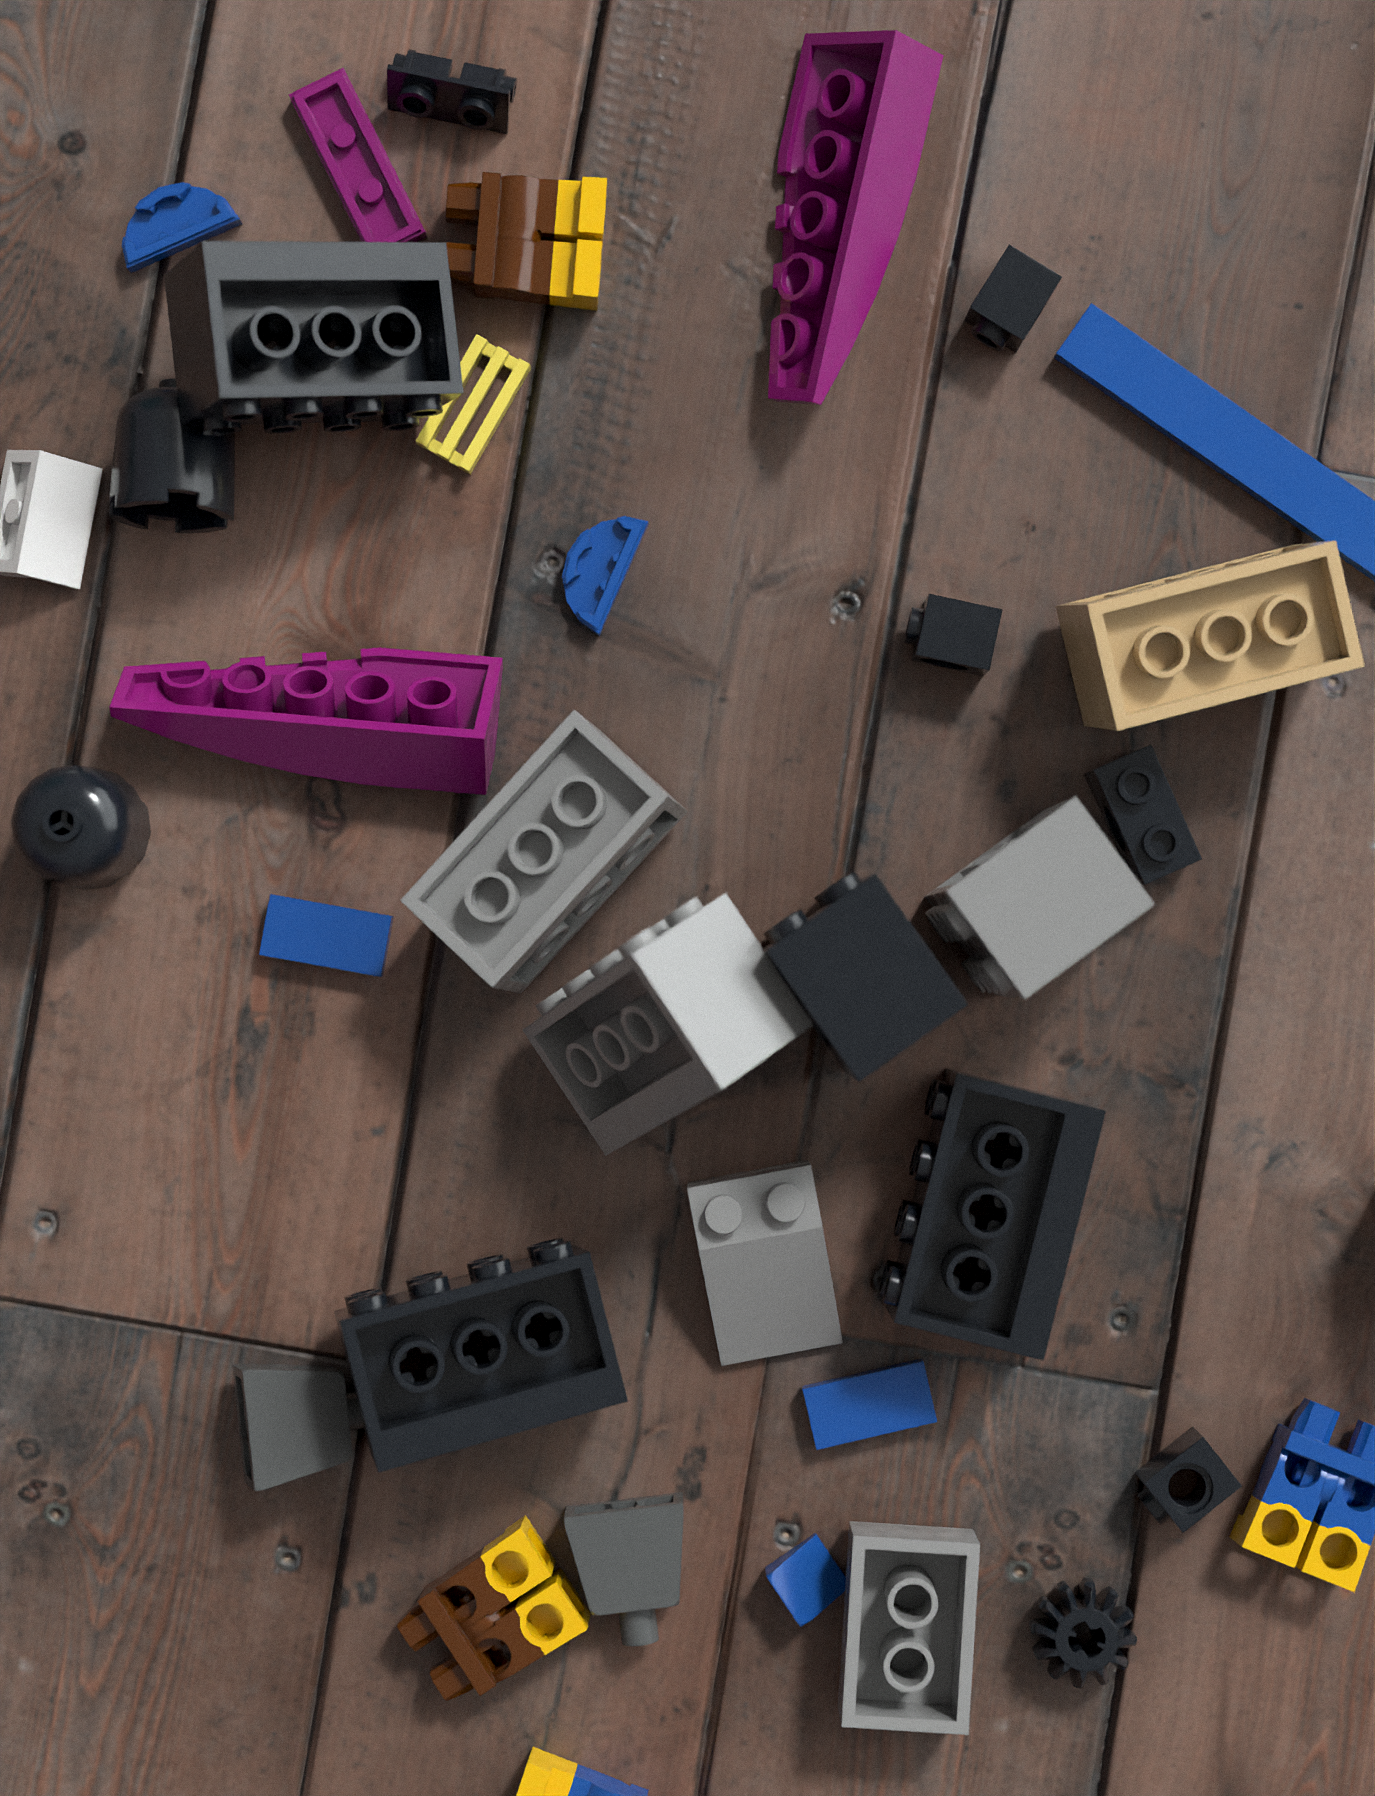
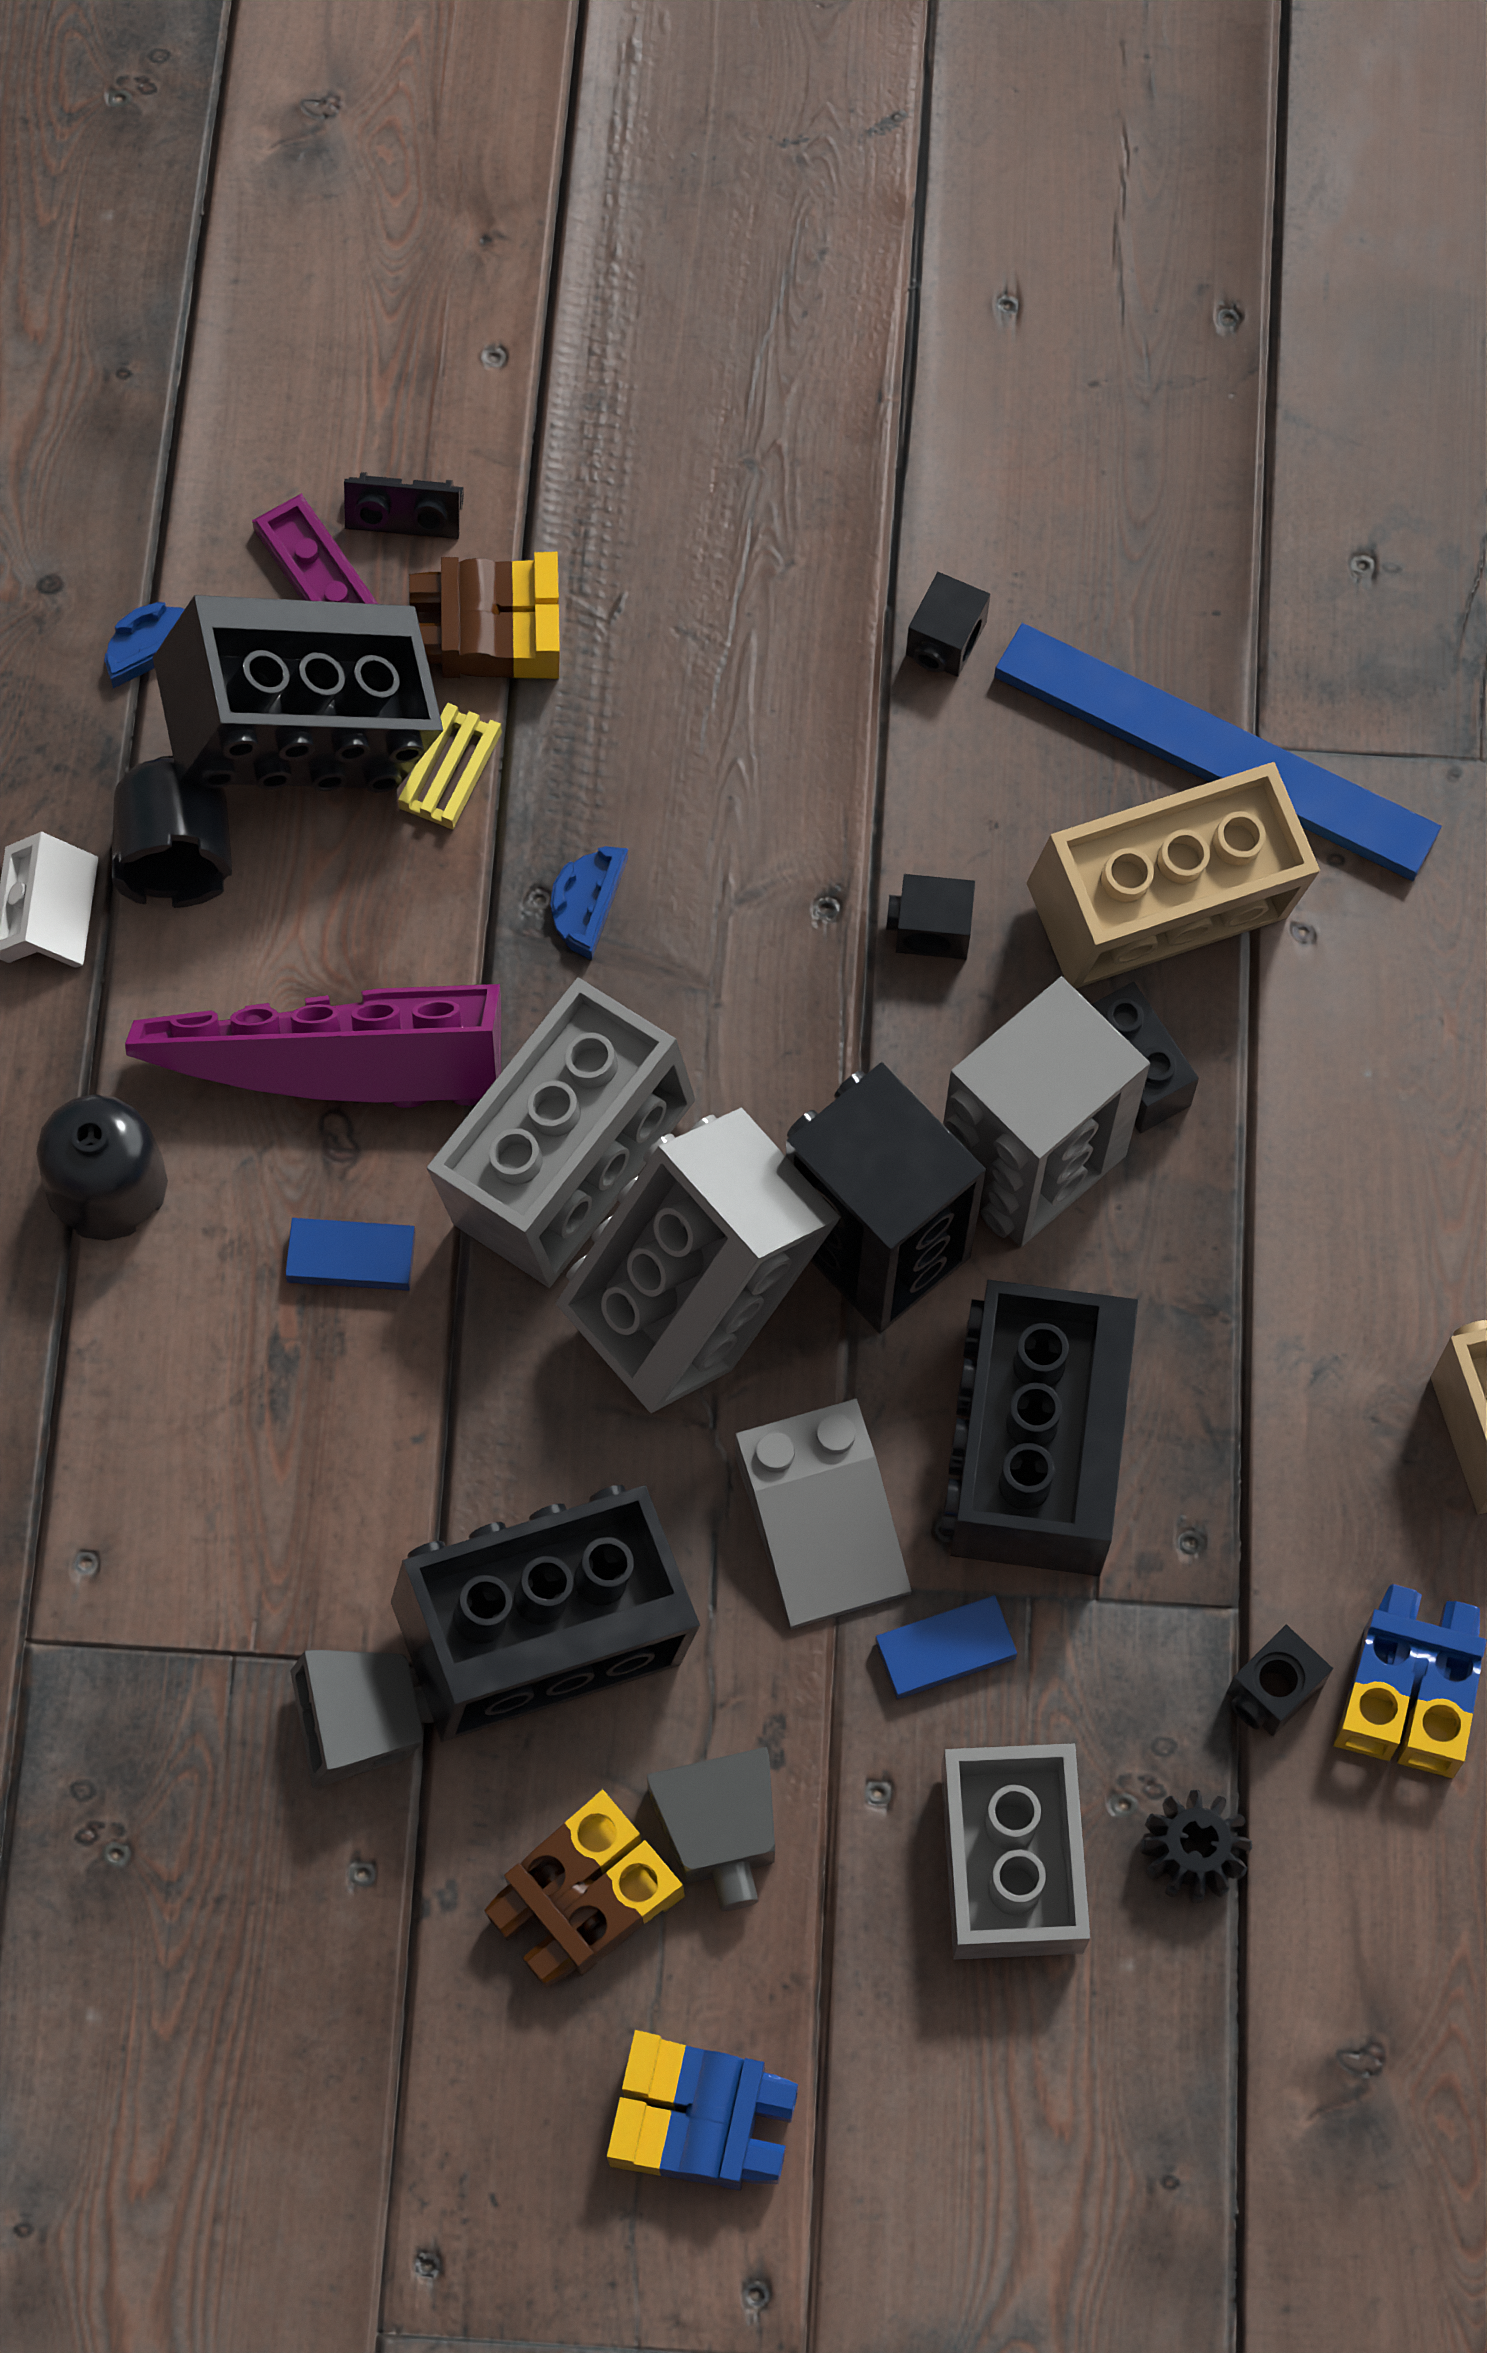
camera: 10 degrees left, 20 degrees down
(806, 1579) = (903, 1829): blue slope -> none
(848, 180) = (781, 549): magenta wedge -> none

